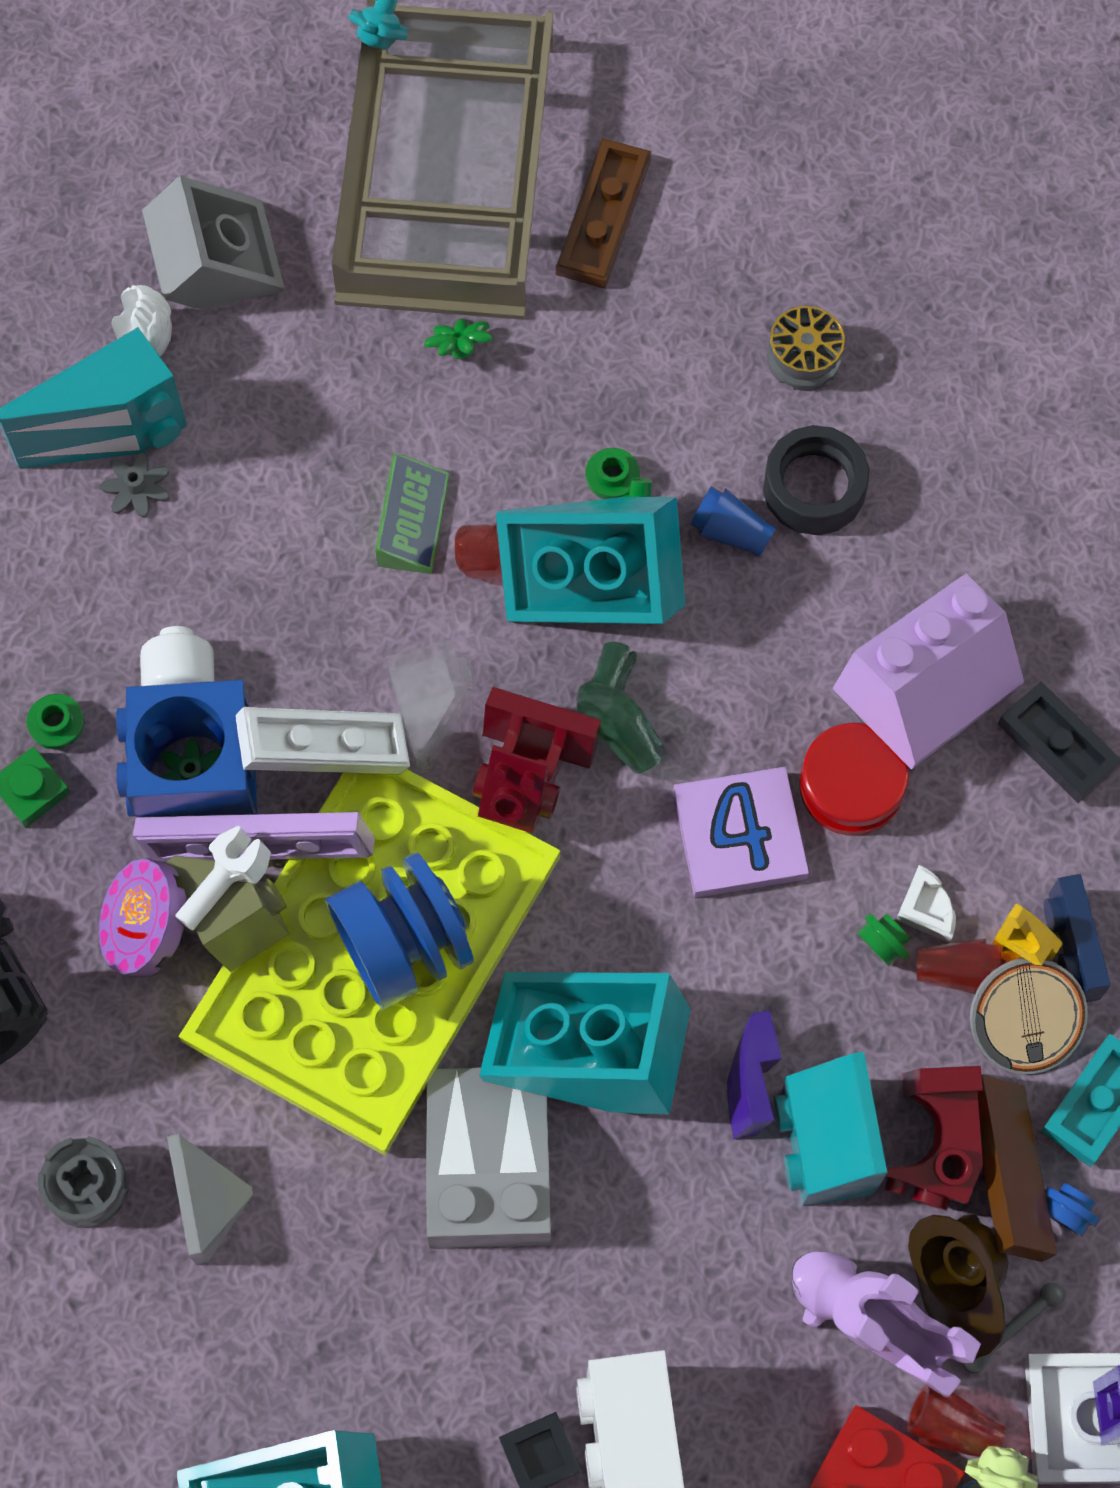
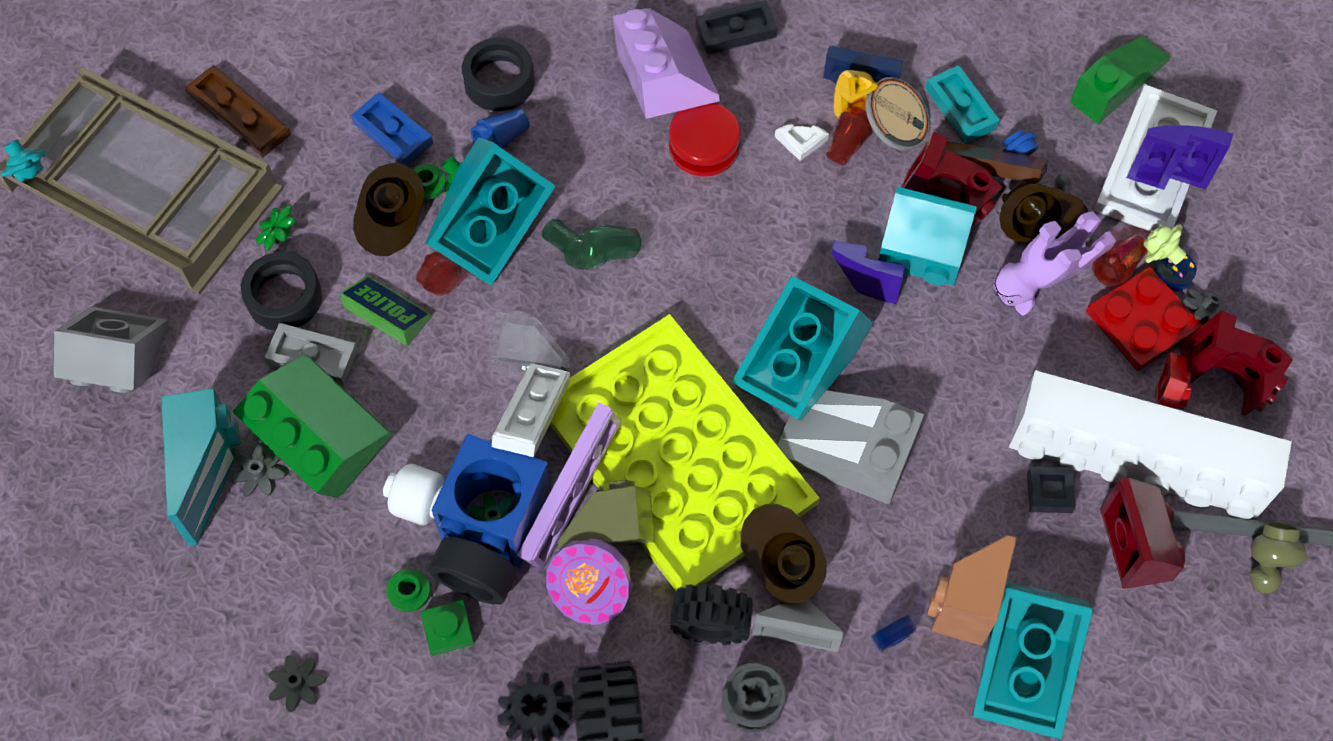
camera: 65 degrees left, 5 degrees down
(91, 777) = (472, 570): none -> black tyre
(149, 312) = (139, 413): white hair -> none
(157, 1081) = (711, 614): none -> black tyre
(203, 510) = (313, 425): none -> green slope
(227, 870) = (597, 504): white bar -> none
(240, 1323) = (894, 633): none -> clear blue tile
(278, 1142) = (783, 553): none -> dark brown piece
(307, 463) = (330, 353): none -> light grey plate
(320, 1393) = (972, 594): none -> nougat slope
(380, 425) = (277, 264): none -> black tyre
(400, 930) = (689, 413): blue wheel -> none
(521, 774) = (610, 314): dark red tile -> none
(538, 447) = (388, 209): none -> dark brown piece
(665, 397) = (392, 129): none -> blue plate
(740, 832) = (704, 215): lavender tile -> none
(805, 348) = (396, 36): dark grey wheel -> none
(885, 938) = (813, 166): green plate -> none

